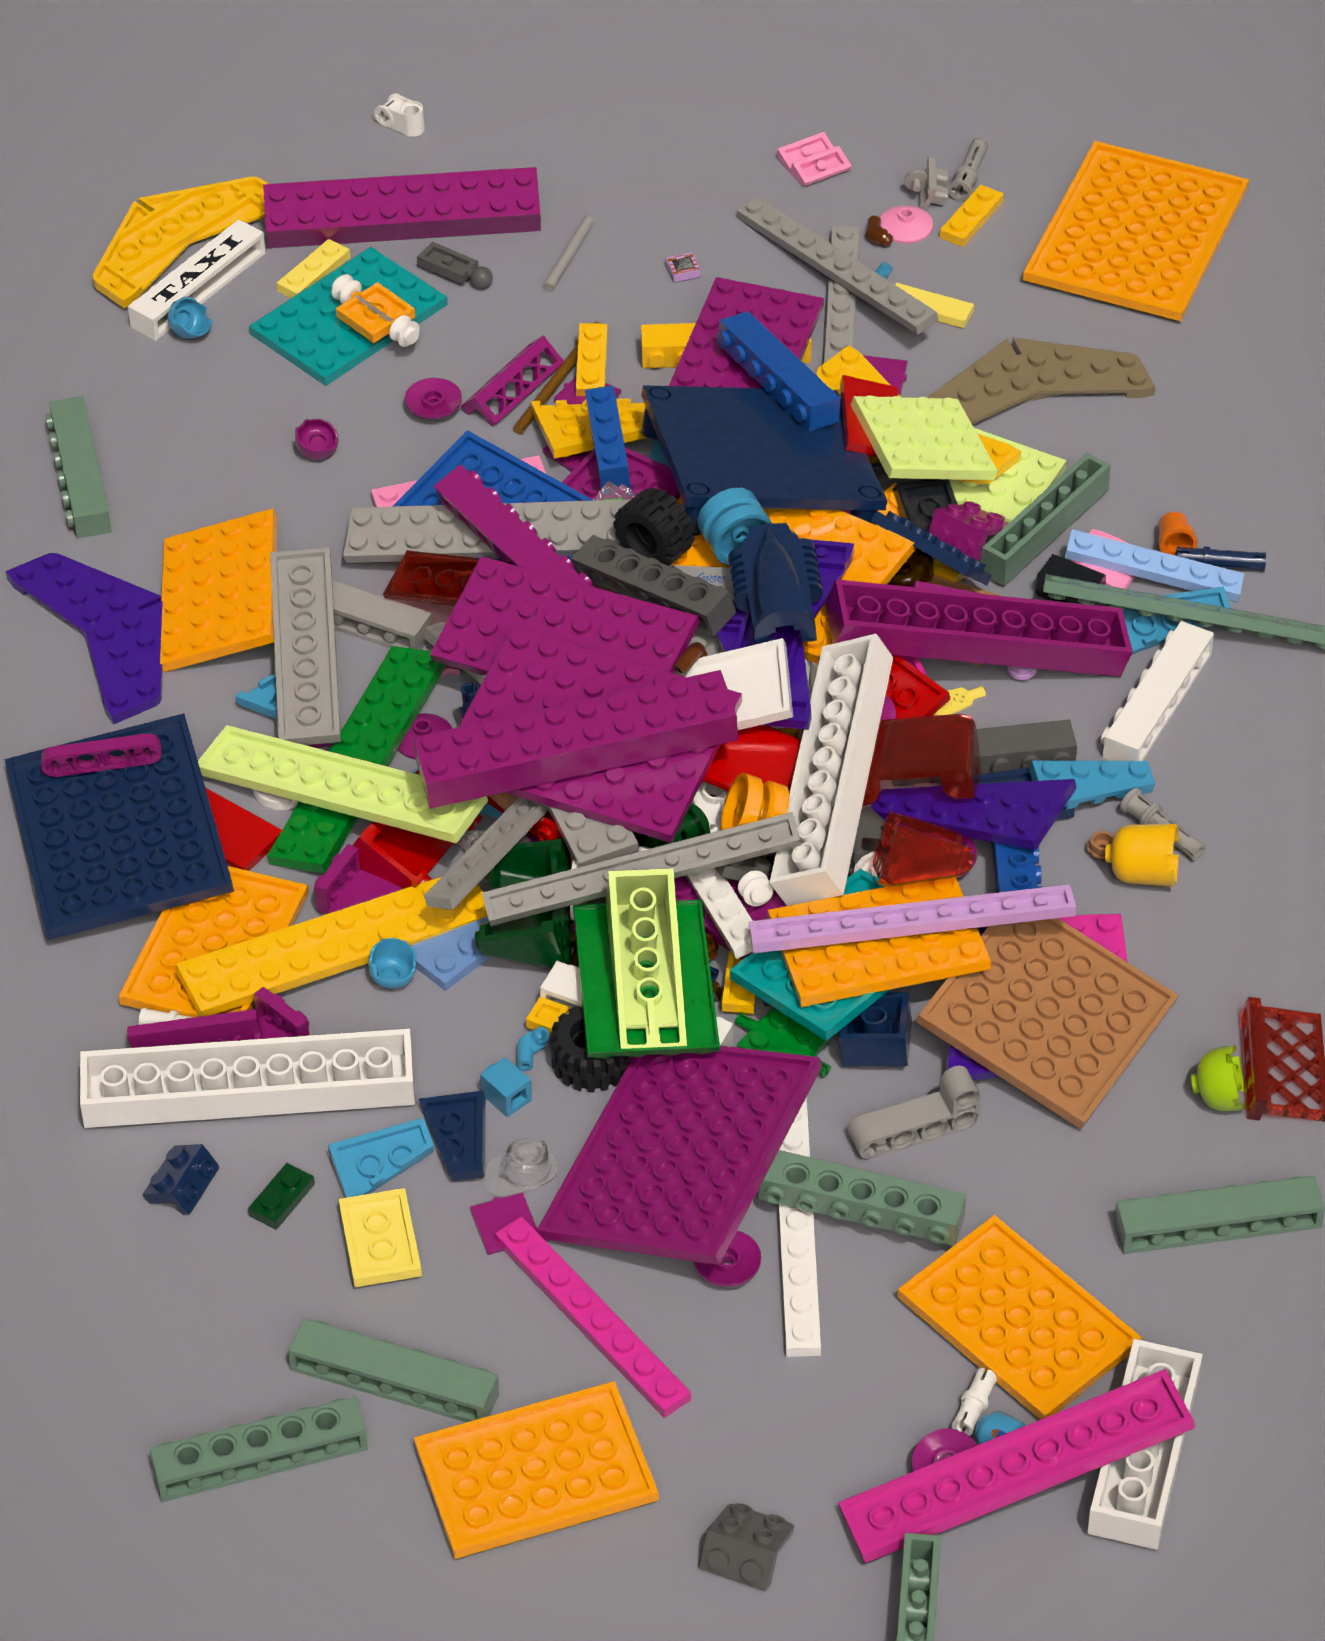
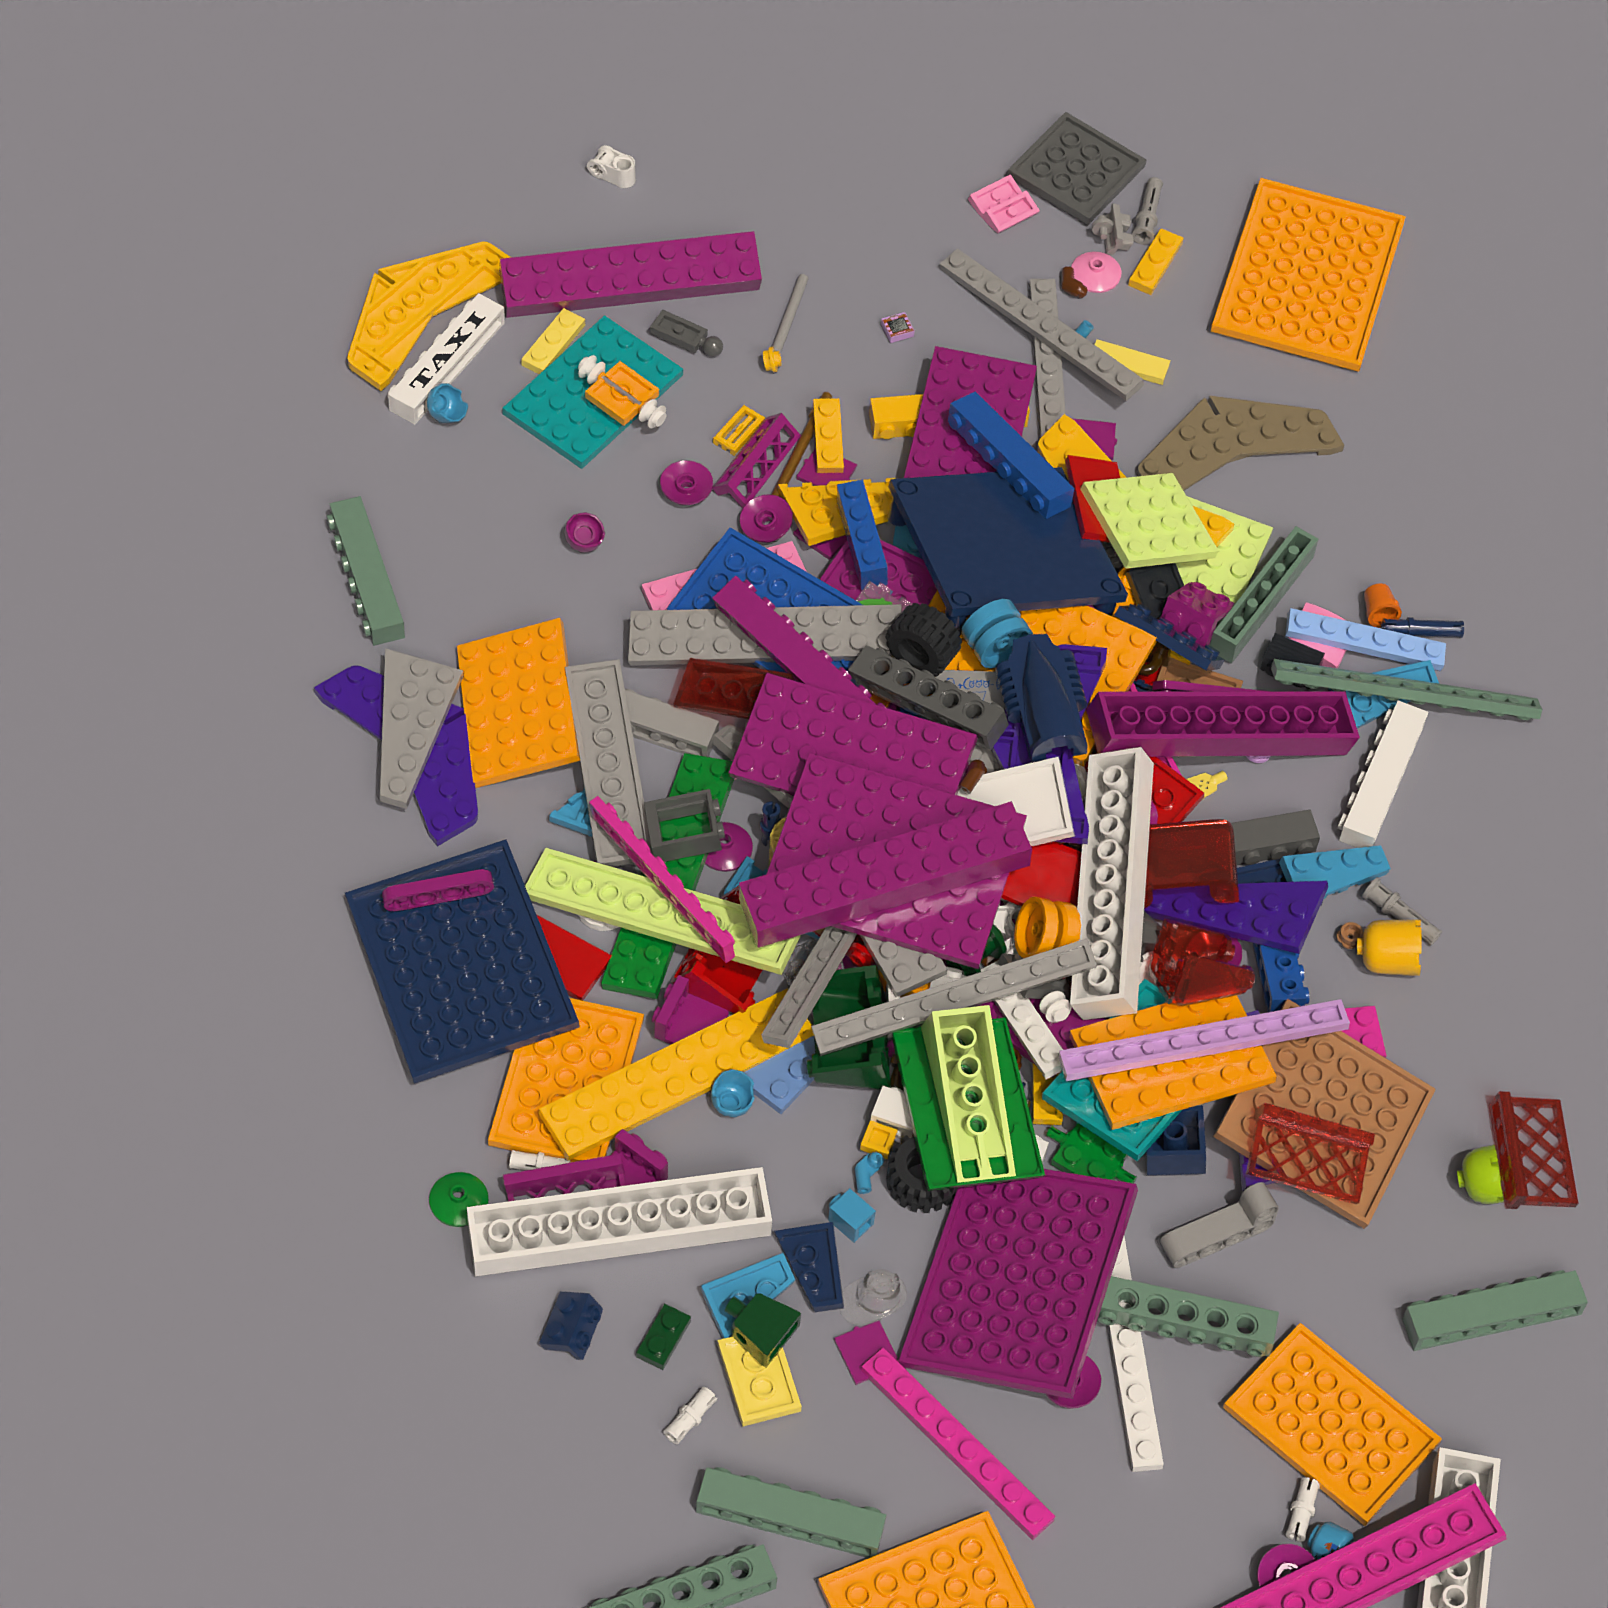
camera: 10 degrees left, 10 degrees up
(65, 1051) = (451, 1209): none -> green dish
(104, 596) = (413, 713): none -> light grey wing
(297, 1272) = (690, 1415): none -> white pin
(346, 753) = (667, 884): none -> dark pink plate
(370, 690) = (678, 807): none -> dark grey window
(389, 1183) = (762, 1326): none -> dark green torso
(501, 355) = (743, 439): none -> yellow tile
(514, 431) = (765, 509): none -> magenta dish
(542, 290) = (772, 359): none -> yellow plate
(897, 128) = (1076, 168): none -> dark grey plate
(1022, 1015) = (1309, 1128): none -> clear red fence

